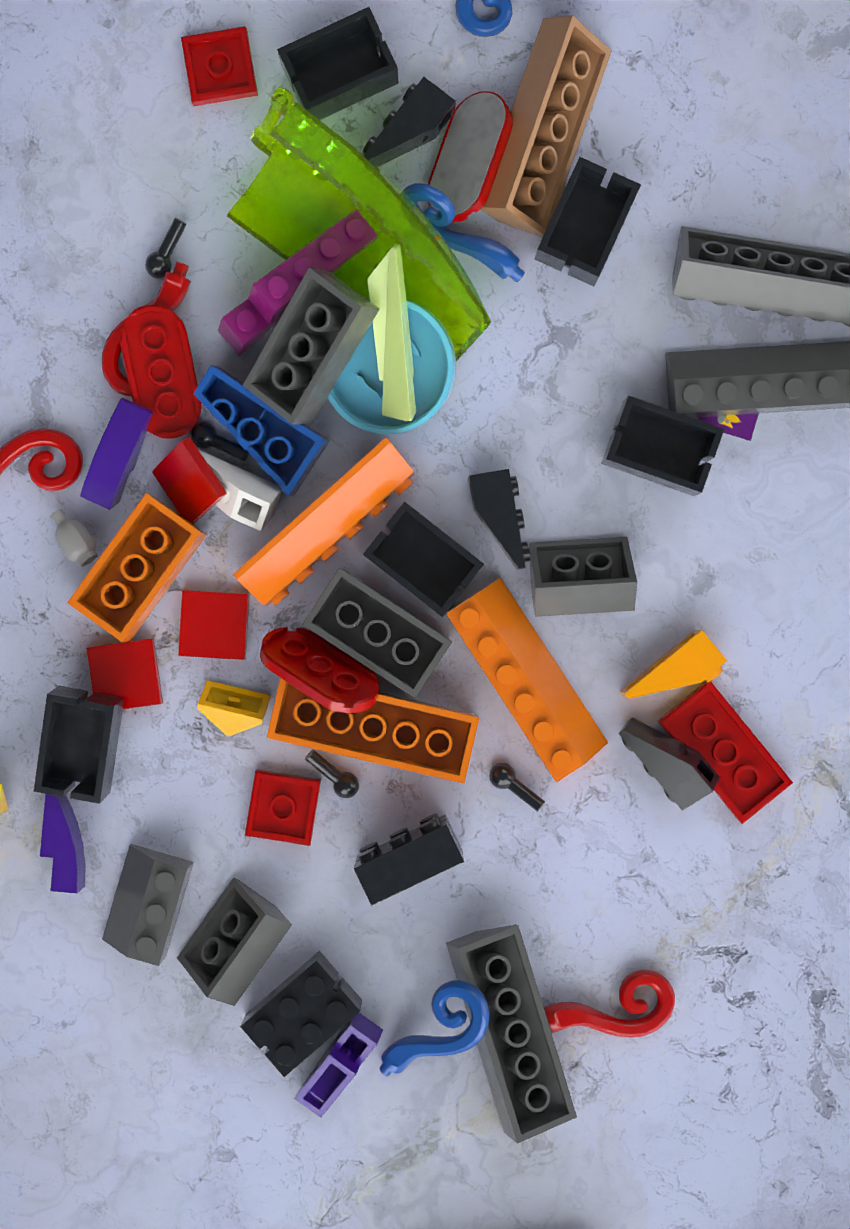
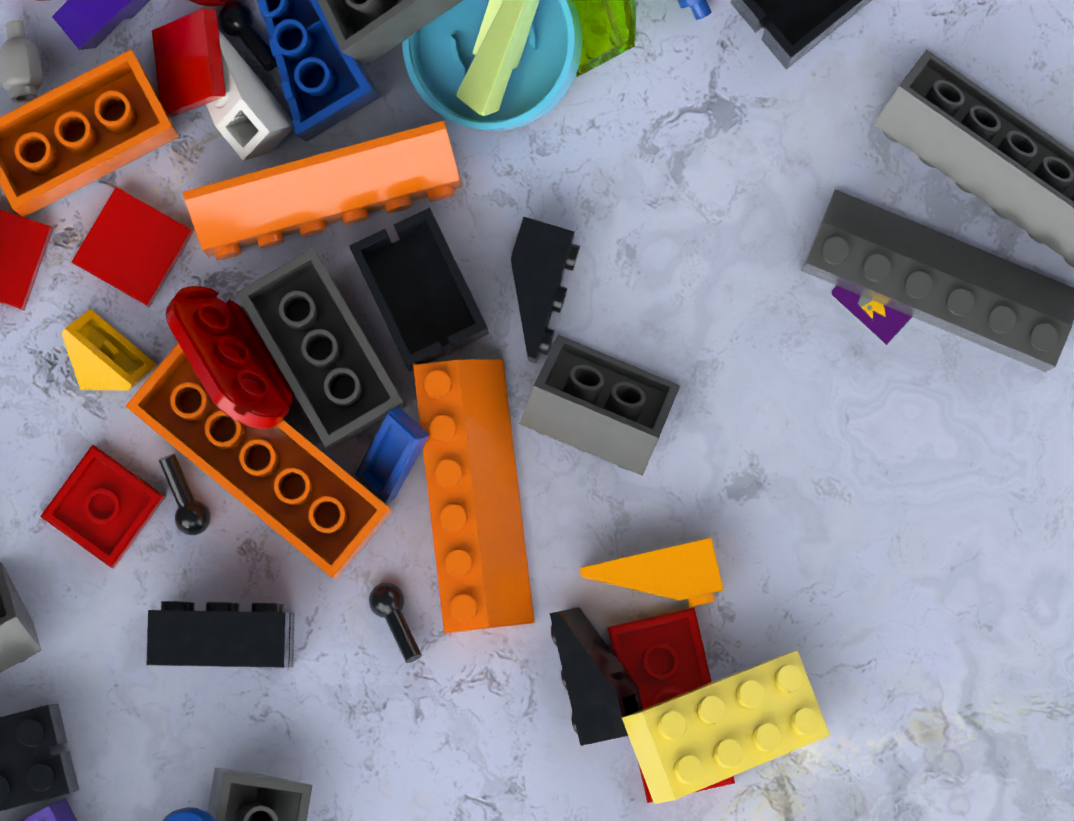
camera: 30 degrees right, 5 degrees down
(460, 679) = (392, 454): none -> blue tile
(662, 446) = (771, 294): black piece -> none
(775, 752) = (725, 727): none -> light yellow brick

